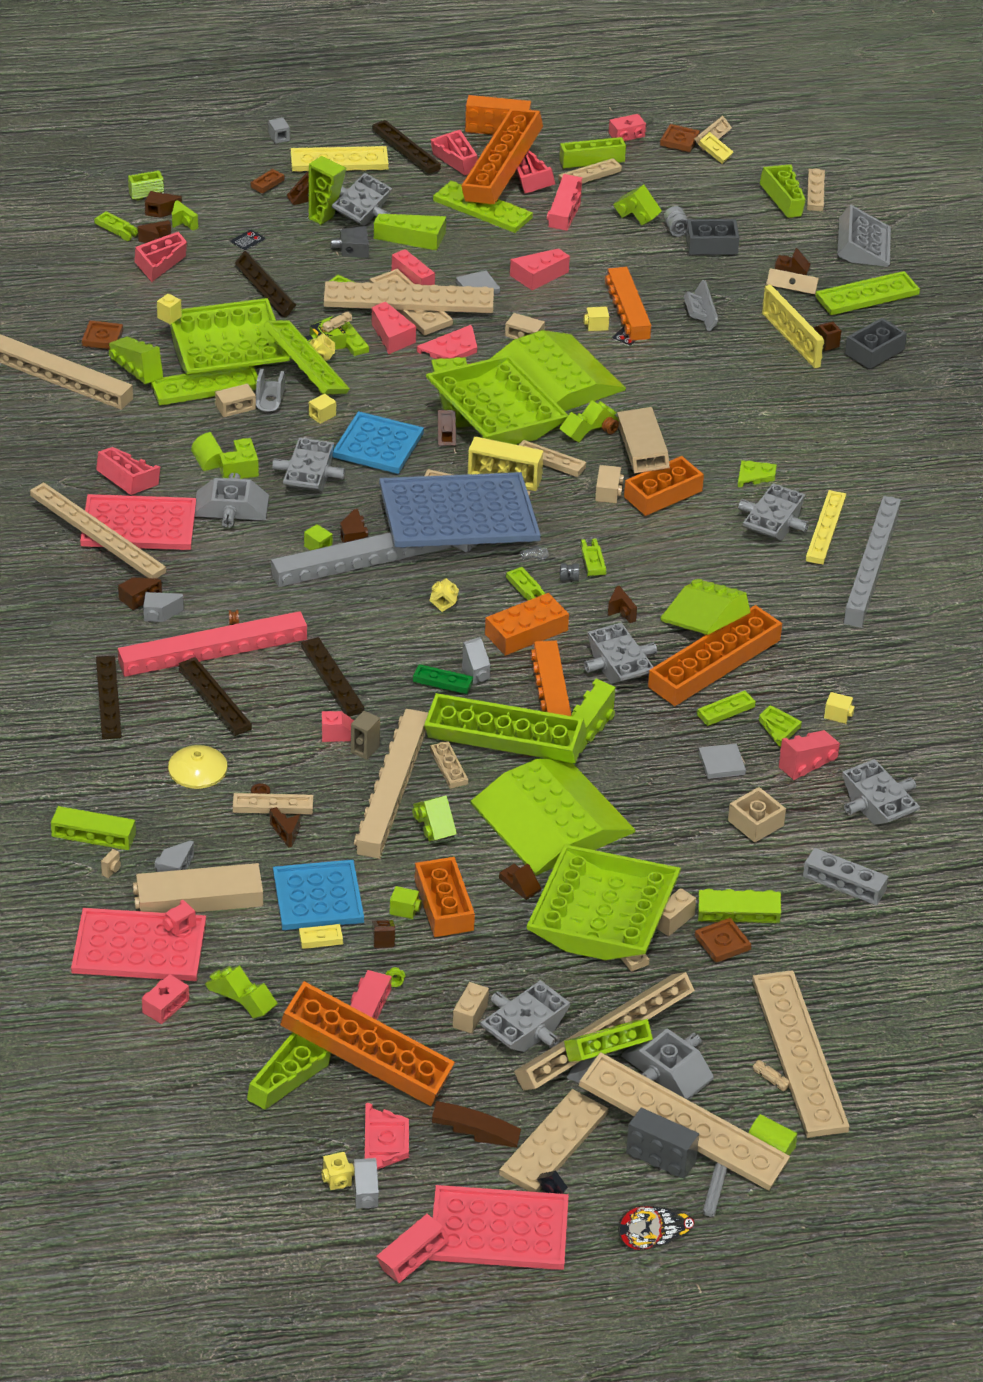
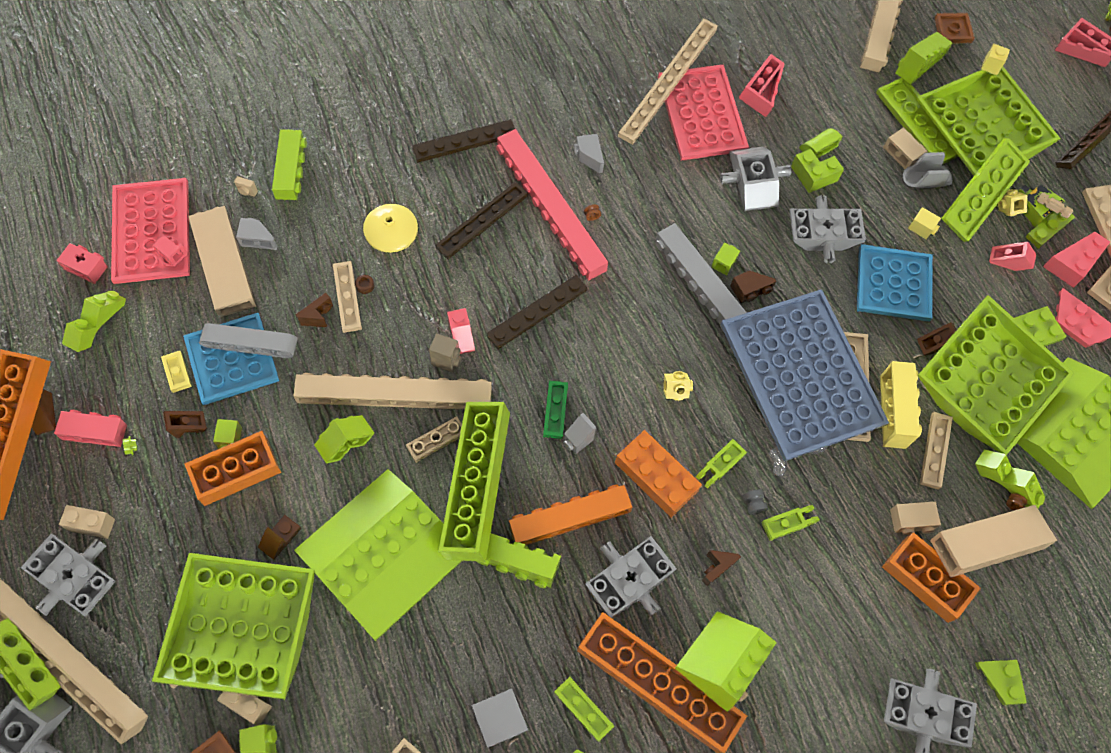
camera: 75 degrees right, 25 degrees up
(133, 590) = (606, 130): reddish brown slope -> none
(308, 869) = (248, 340): none -> light grey beam
(376, 364) = (1013, 256): none -> coral slope

